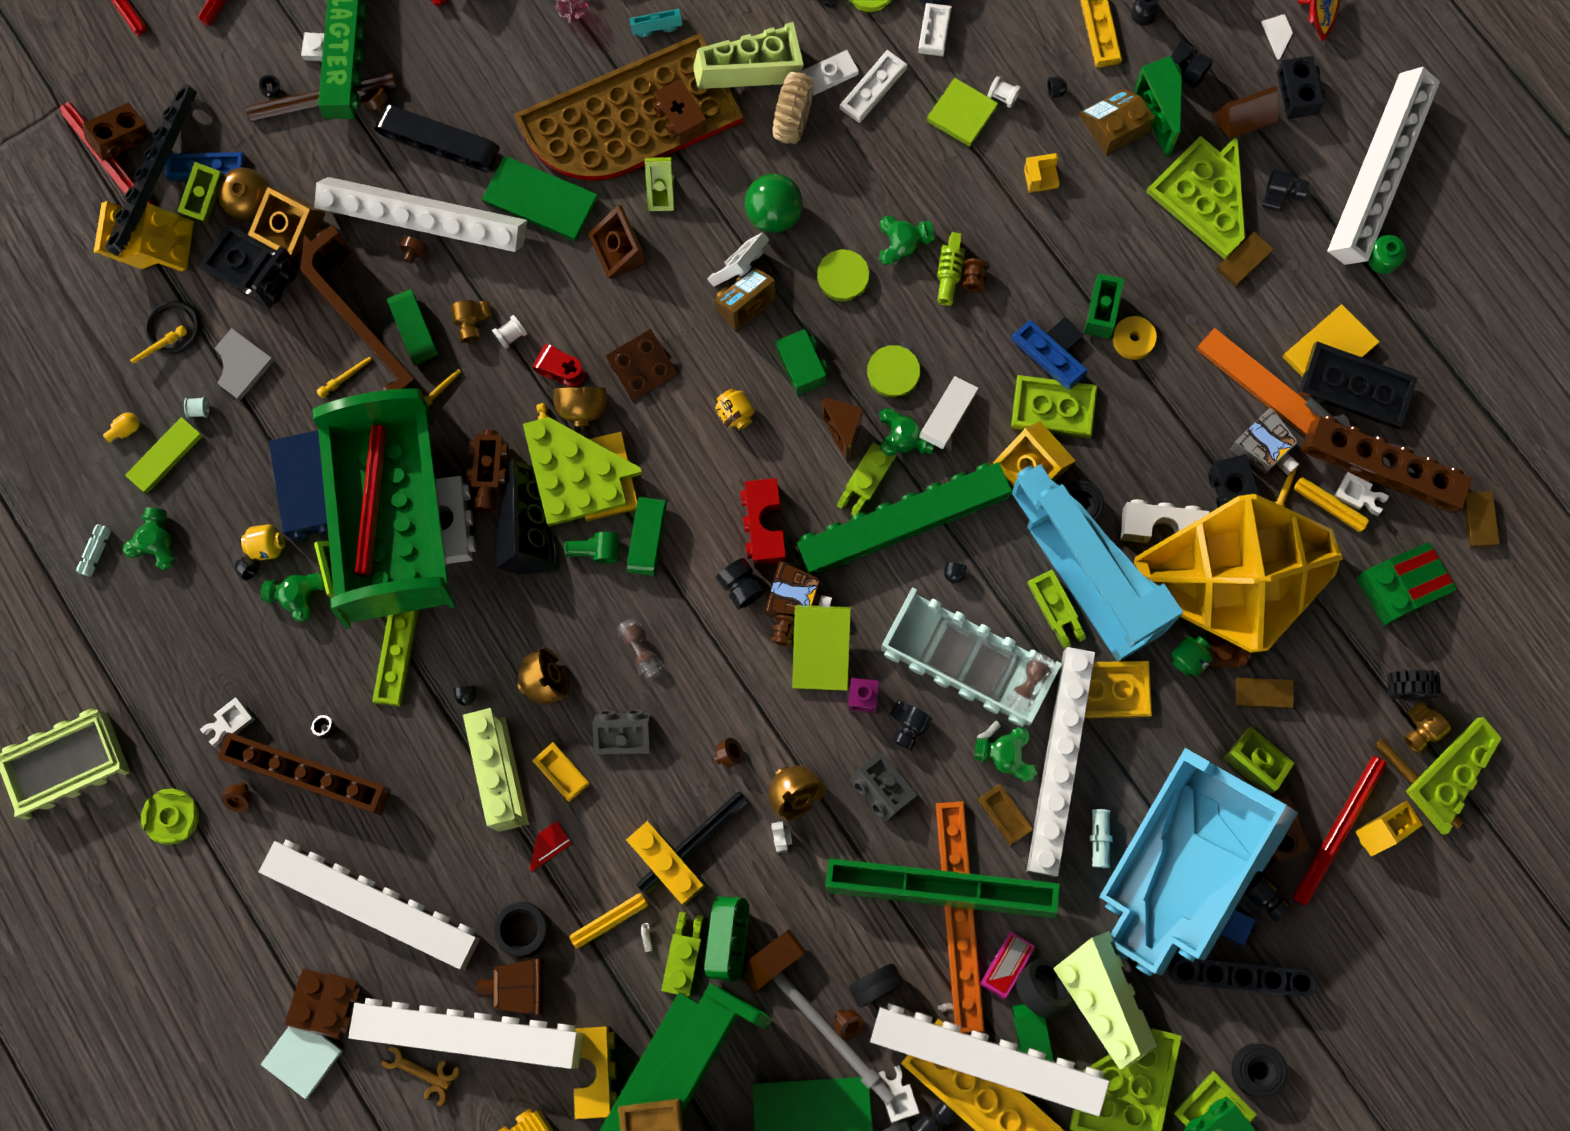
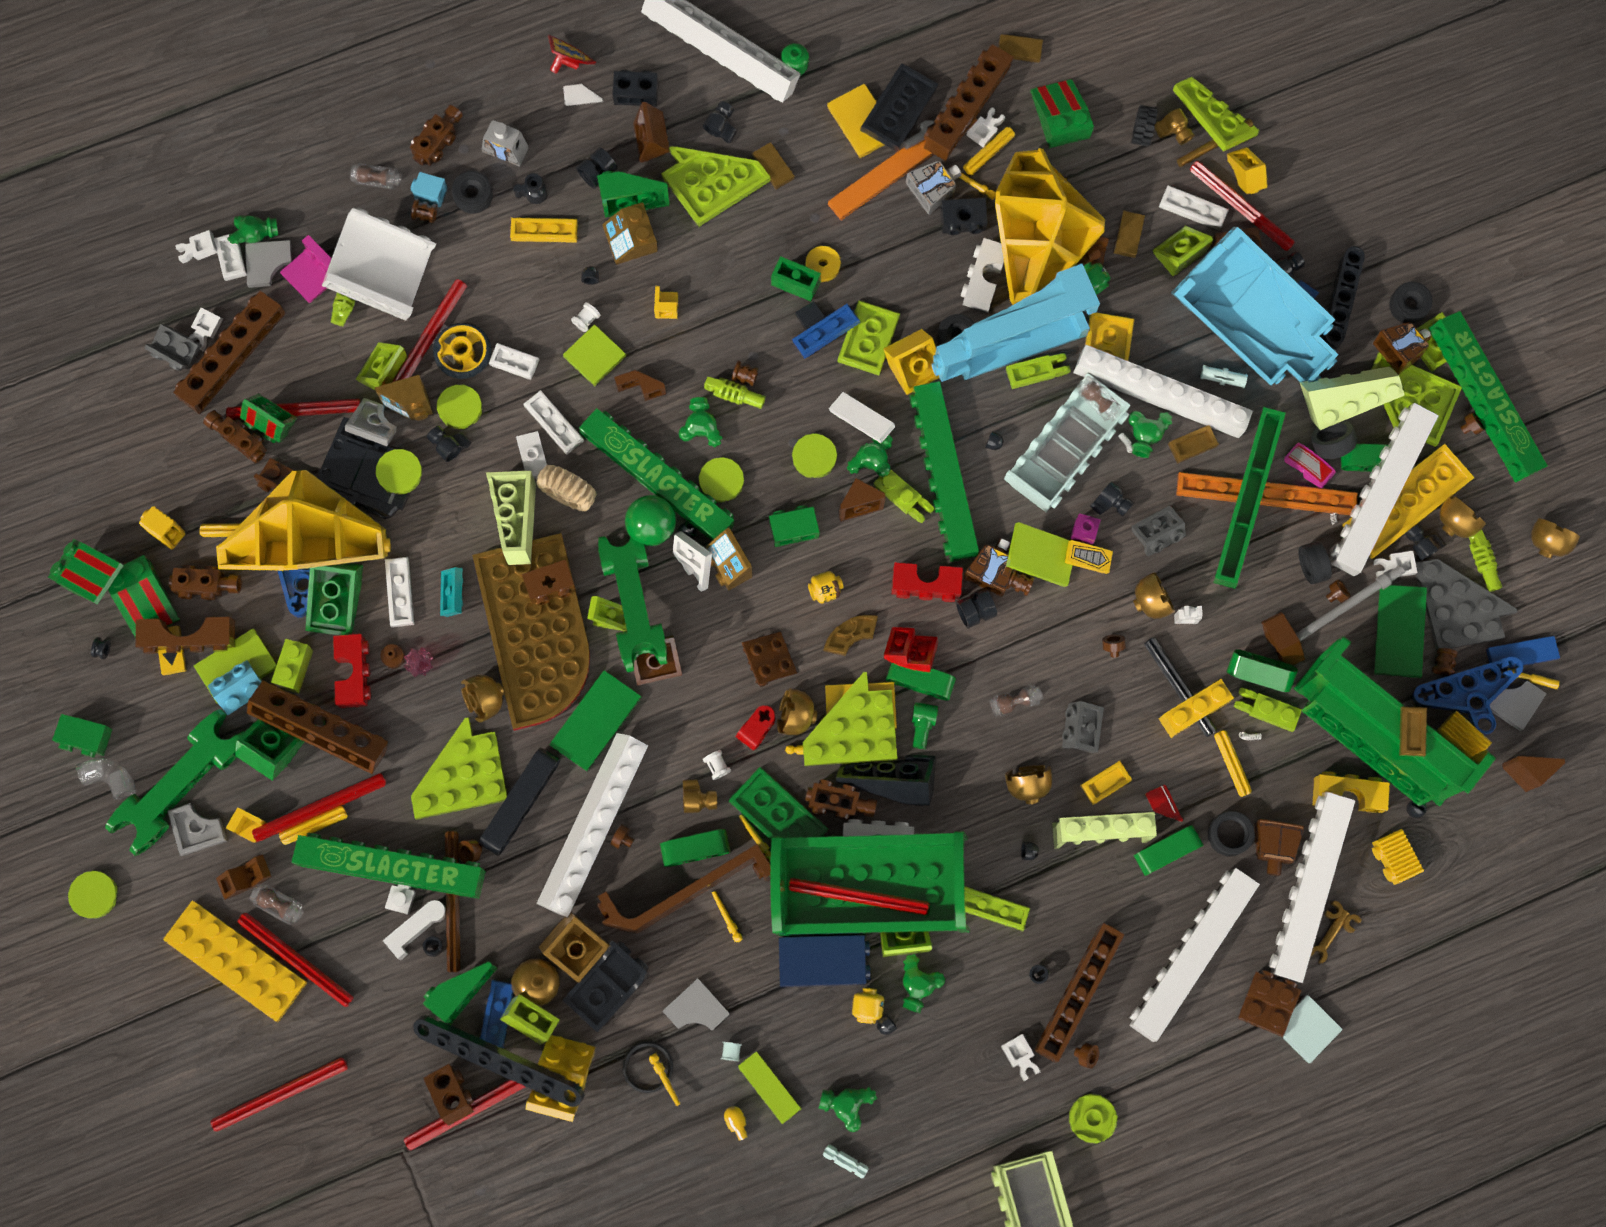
camera: 90 degrees left, 0 degrees up
(212, 113) = (455, 994): none -> green slope
(271, 52) = (406, 933): none -> white leg
(458, 78) = (462, 776): none -> lime wing
(468, 408) = (775, 809): none -> green tile
(489, 856) = (1168, 850): none -> green beam
(543, 76) = (482, 696): none -> pearl gold cylinder
(638, 209) = (640, 635): none -> green piece
(677, 516) = (911, 650): none -> red slope
(689, 449) = (849, 632): none -> pearl gold tile
(779, 250) = (688, 529): none -> black hinge
(831, 202) = (656, 475): none -> green brick
(831, 706) = (1088, 557): none -> tile
(934, 172) = (649, 386): none -> reddish brown slope
(1193, 1063) = (1402, 345): none -> reddish brown torso
(1321, 769) = (1193, 208): none -> white tile

